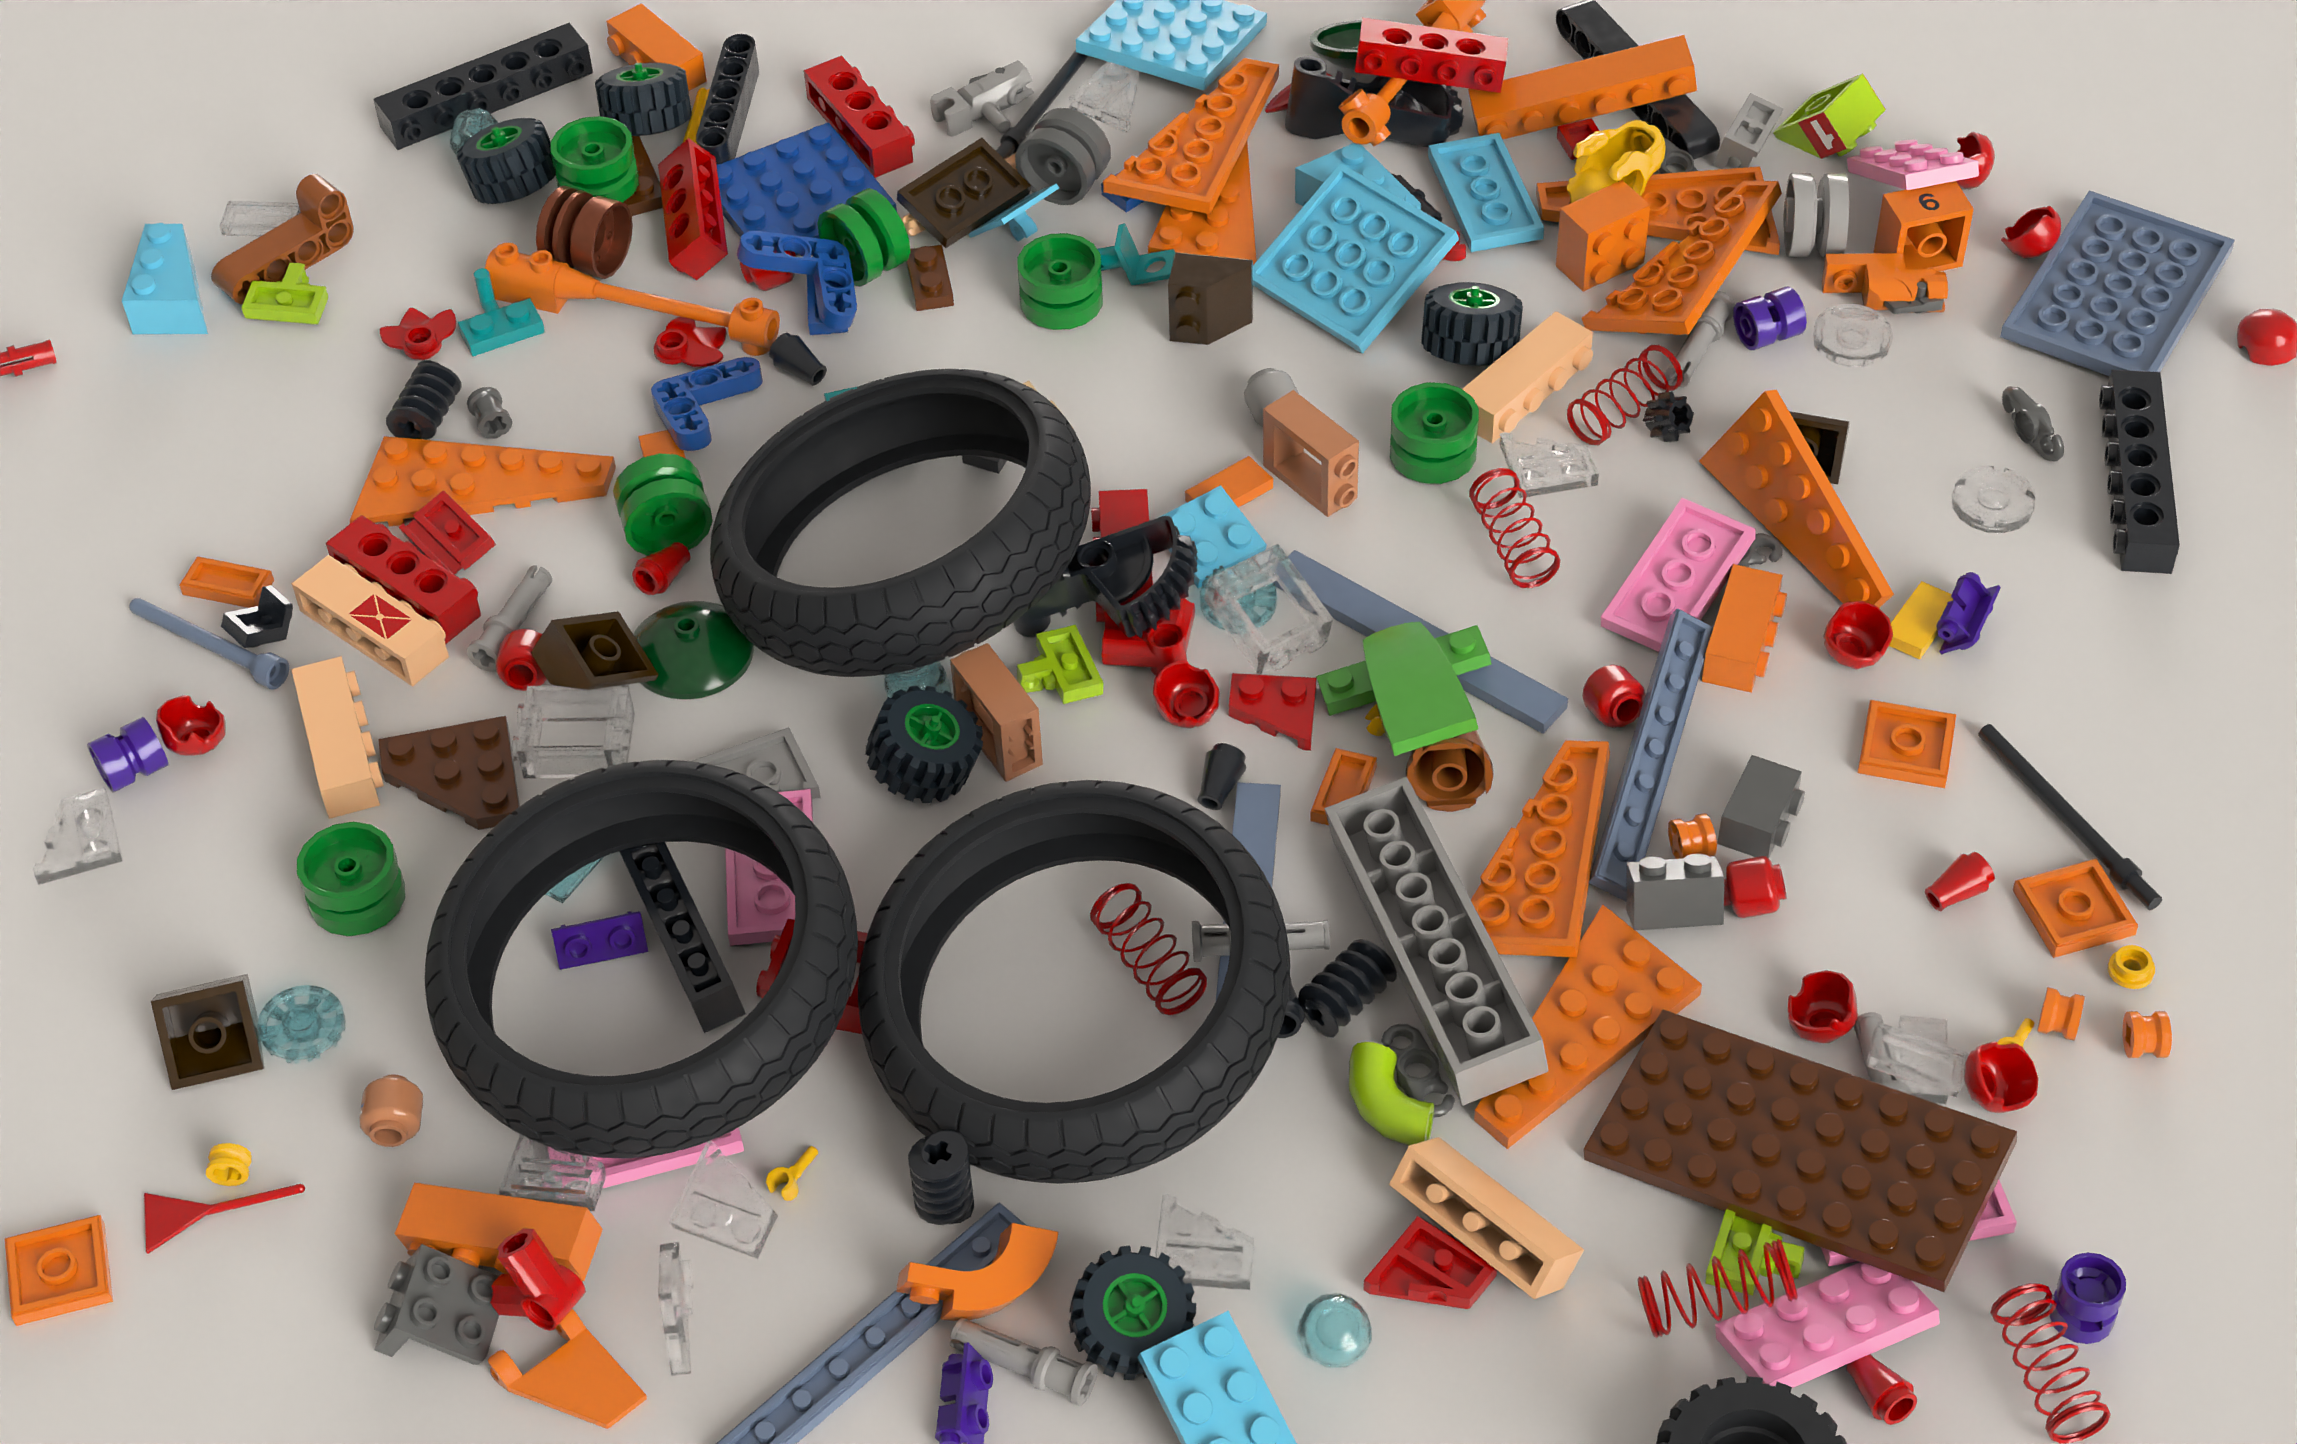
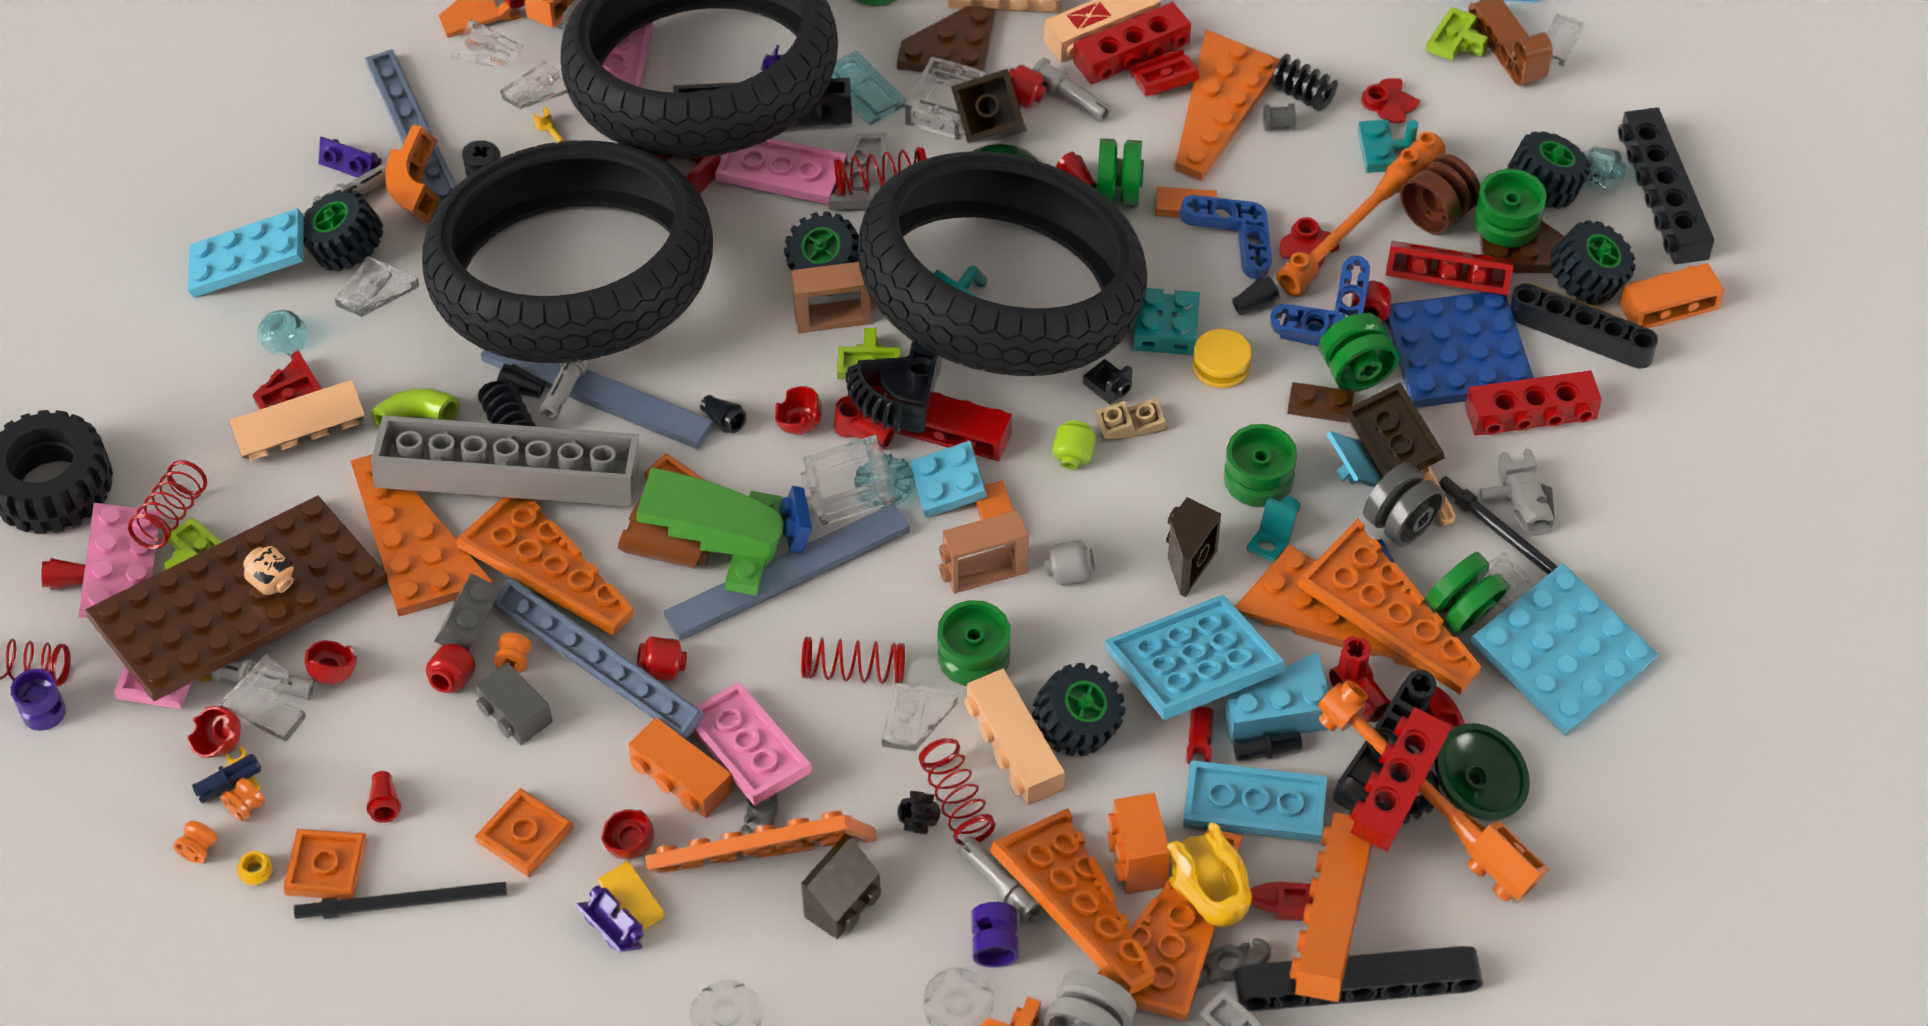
camera: 110 degrees right, 5 degrees up
(794, 743) = (840, 171): none -> red piece
(906, 351) = (1221, 358): none -> yellow head
(1105, 442) = (1073, 444): none -> lime head
(1158, 84) = (1467, 593): none -> green wheel
(1275, 704) = (772, 469): red wing -> none
(1299, 142) = (1355, 667): none -> red piece
(1342, 640) = (796, 519): none -> blue plate
(1764, 1091) = (268, 570): none -> light nougat head
(2044, 1044) = (226, 778): none -> dark blue axle

